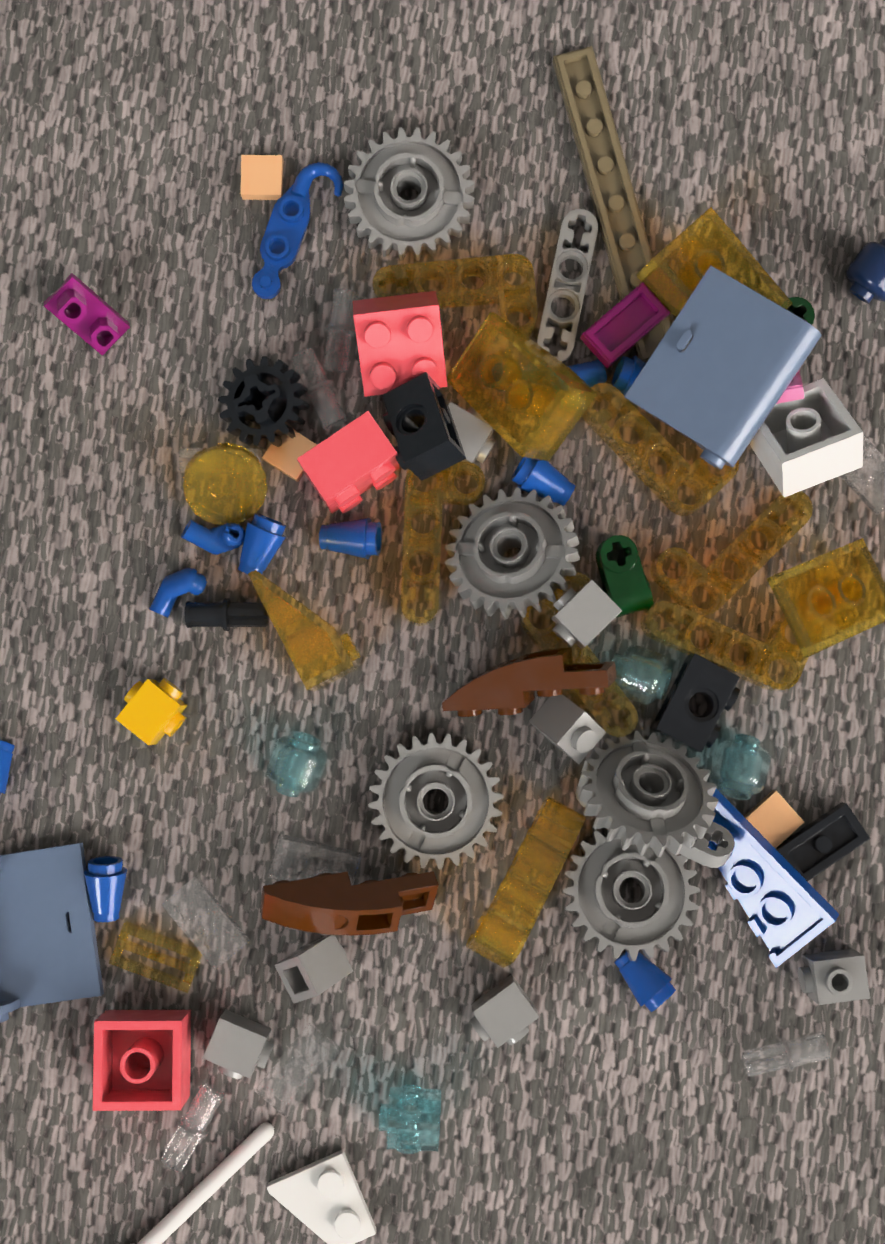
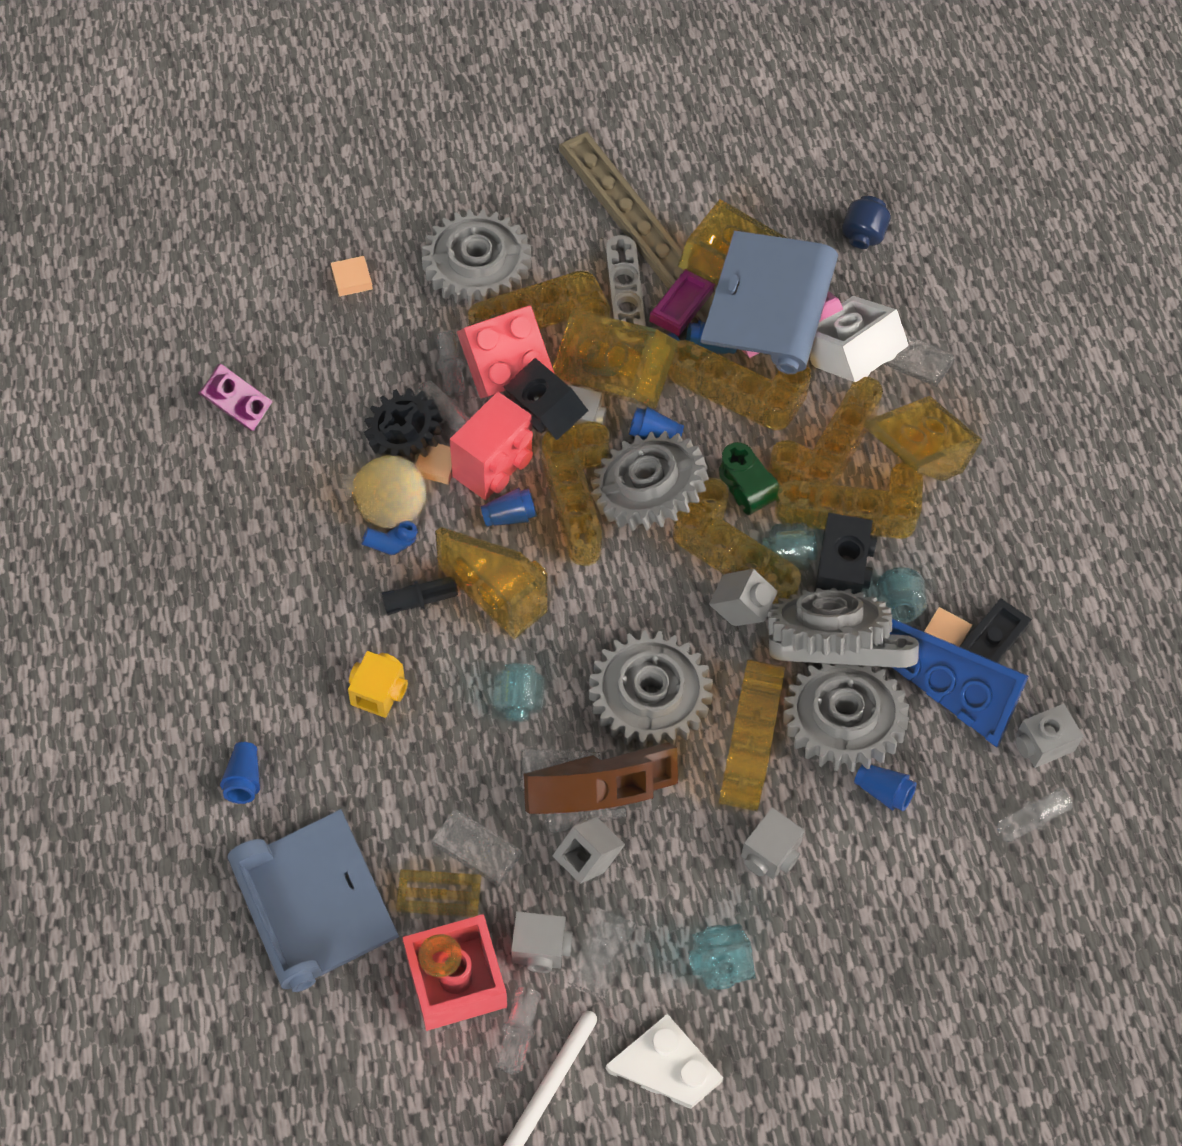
camera: 15 degrees left, 25 degrees down
(105, 887) = (374, 839): blue cone -> none
(110, 1064) = (440, 943): none -> clear yellow plate
(175, 585) = (366, 584): blue arm -> none
(260, 543) = (428, 522): blue cone -> none
(288, 227) = (384, 304): blue piece -> none
(514, 682) = (681, 572): reddish brown slope -> none
(583, 614) = (726, 498): light grey brick -> none

